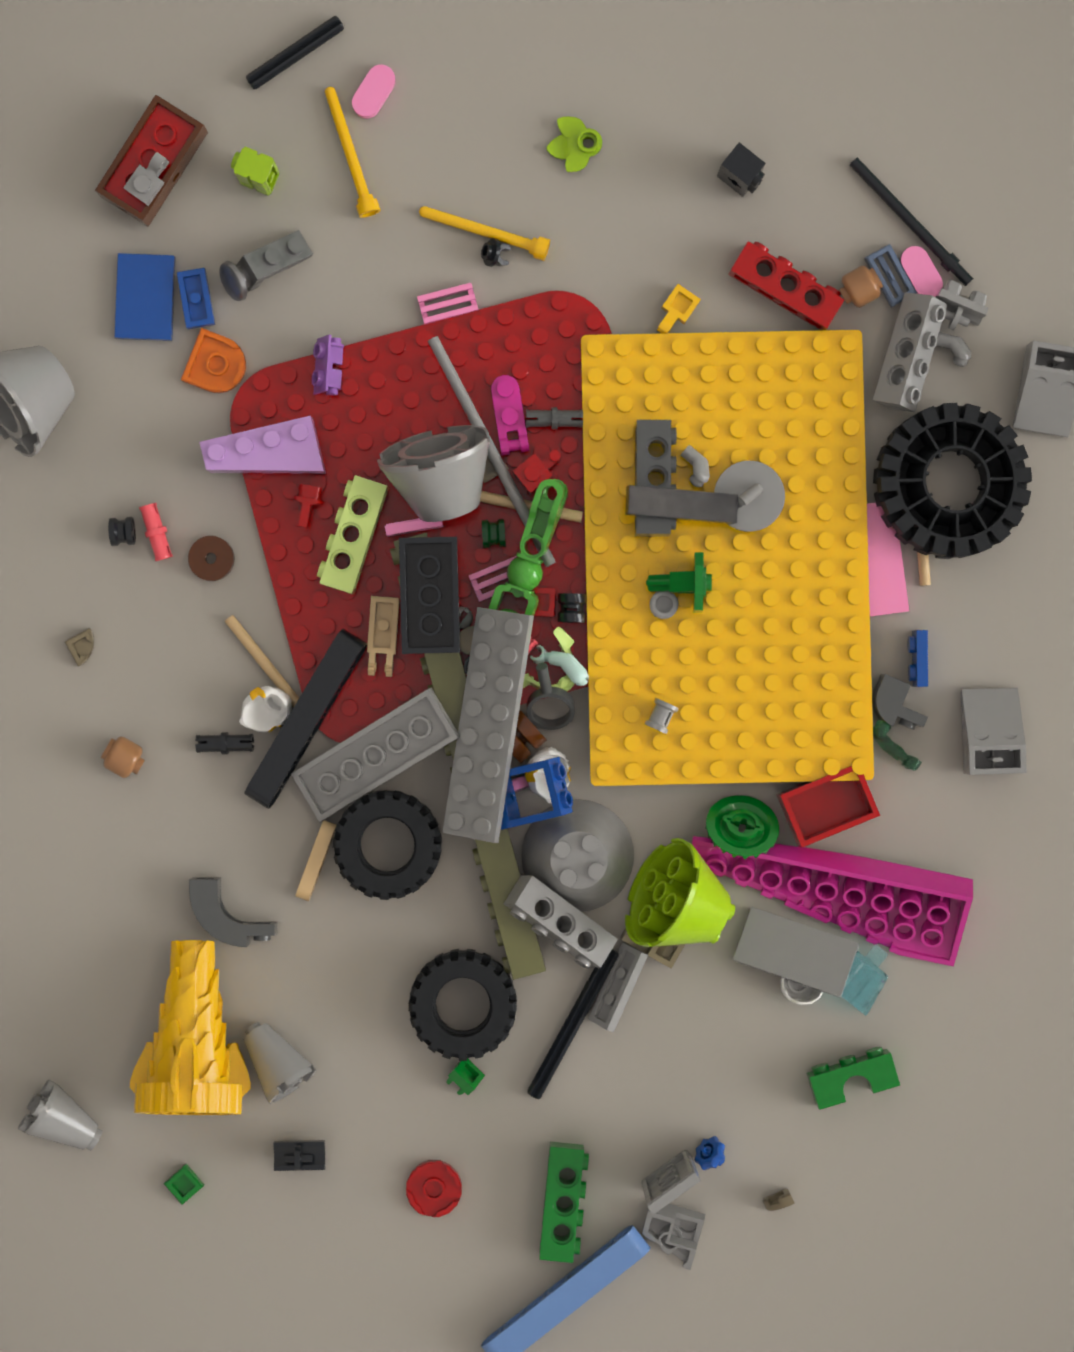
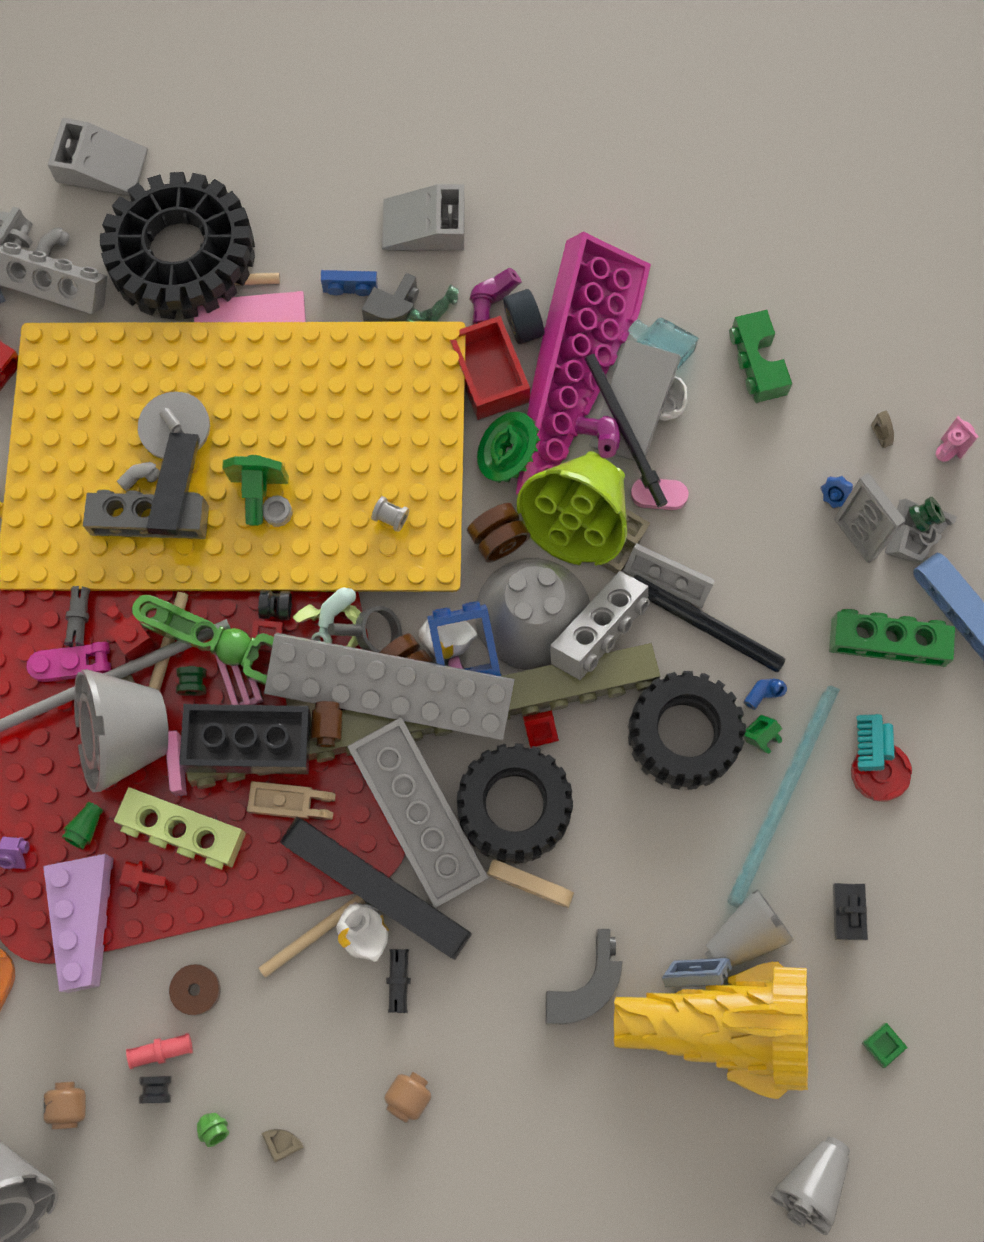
camera: 90 degrees left, 15 degrees down
(90, 584) = (212, 1129): none -> bright green plate
(105, 452) = (64, 1106): none -> medium nougat head
(238, 1014) = (697, 972): none -> sand blue tile
(352, 444) = (82, 826): none -> green cone
(407, 1095) = (782, 796): none -> clear light blue tile
(449, 667) = (326, 724): none -> reddish brown brick
(459, 1189) = (882, 742): none -> teal piece
(461, 866) = (541, 728): none -> red plate
(509, 1079) = (765, 689): none -> blue arm
(653, 820) = (498, 532): none -> reddish brown wheel
(686, 1240) = (927, 514): none -> dark green wheel
(704, 977) = (674, 491): none -> bright pink tile
(714, 967) = (649, 478): none -> black bar
(758, 925) = (605, 430): none -> magenta arm
(765, 1272) = (956, 440): none -> bright pink hinge
(886, 838) = (523, 316): none -> black wheel
(915, 802) = (491, 292): none -> magenta arm

